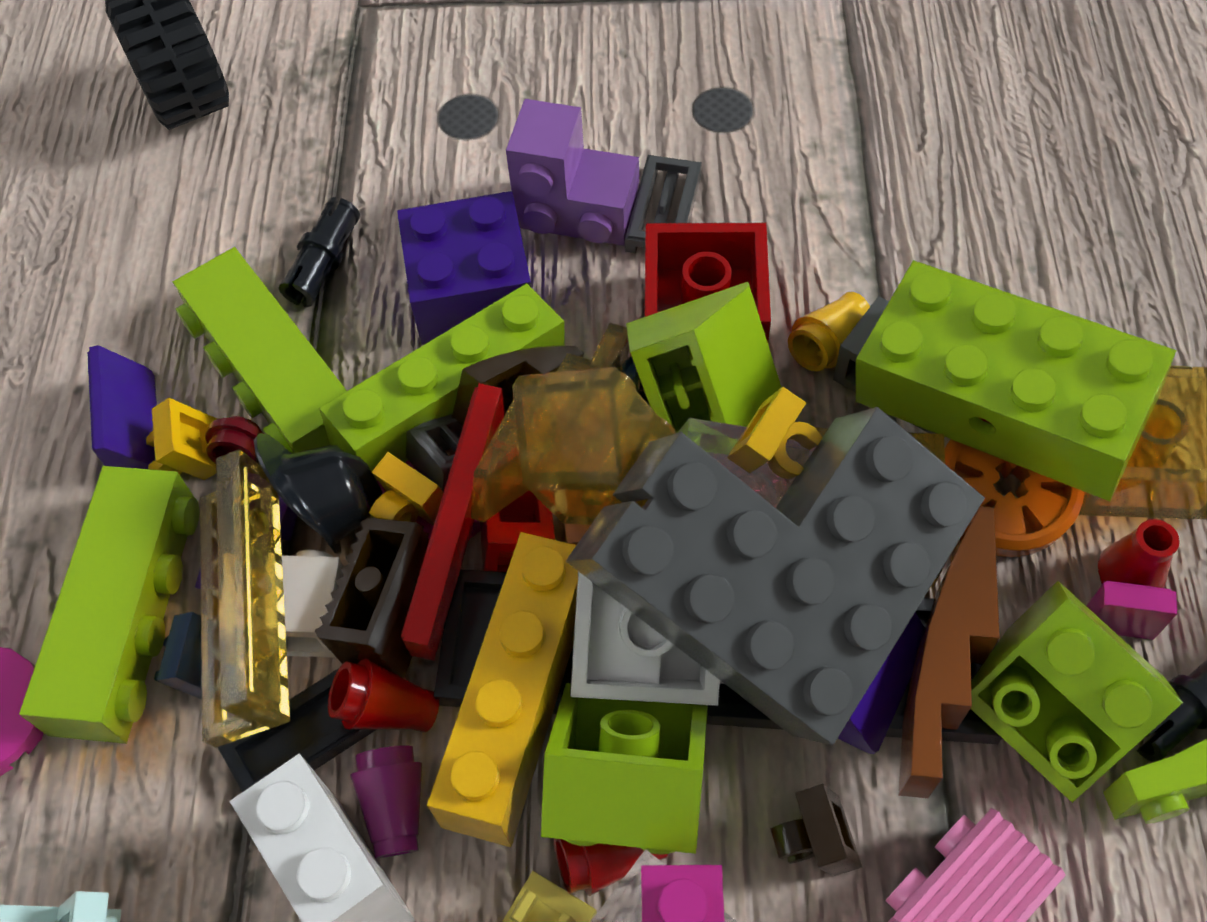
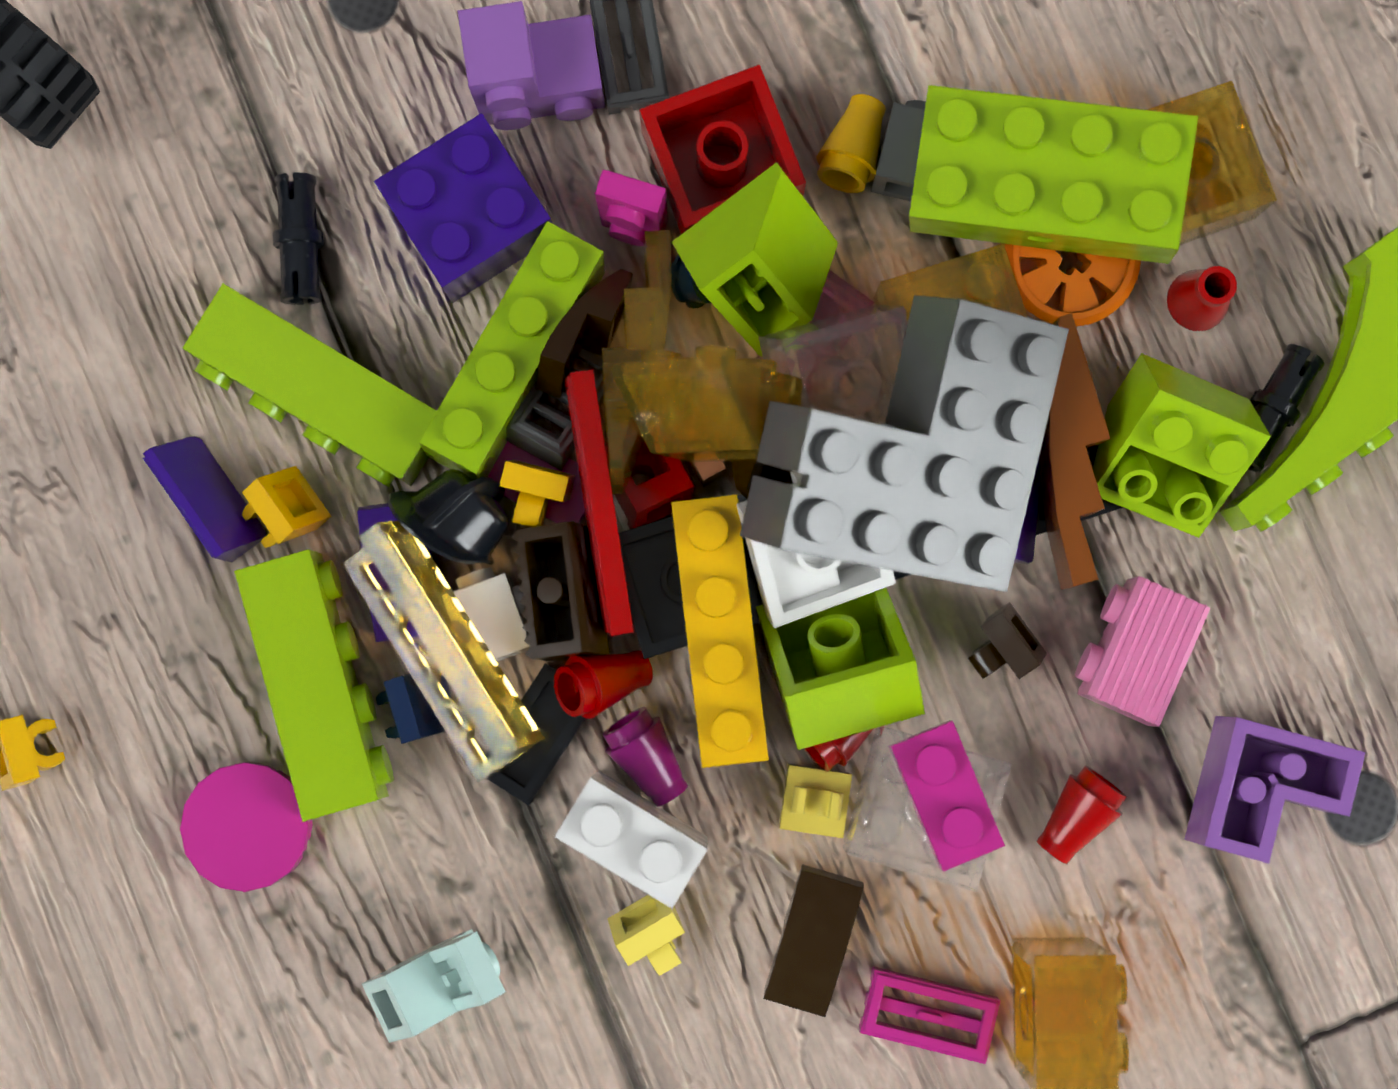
camera: 25 degrees left, 25 degrees up
(231, 434) = (337, 489): dark red plate -> none
(604, 291) = (630, 207): none -> dark pink plate
(768, 433) = (861, 333): yellow tile -> none
(1134, 609) = (1206, 344): dark pink tile -> none

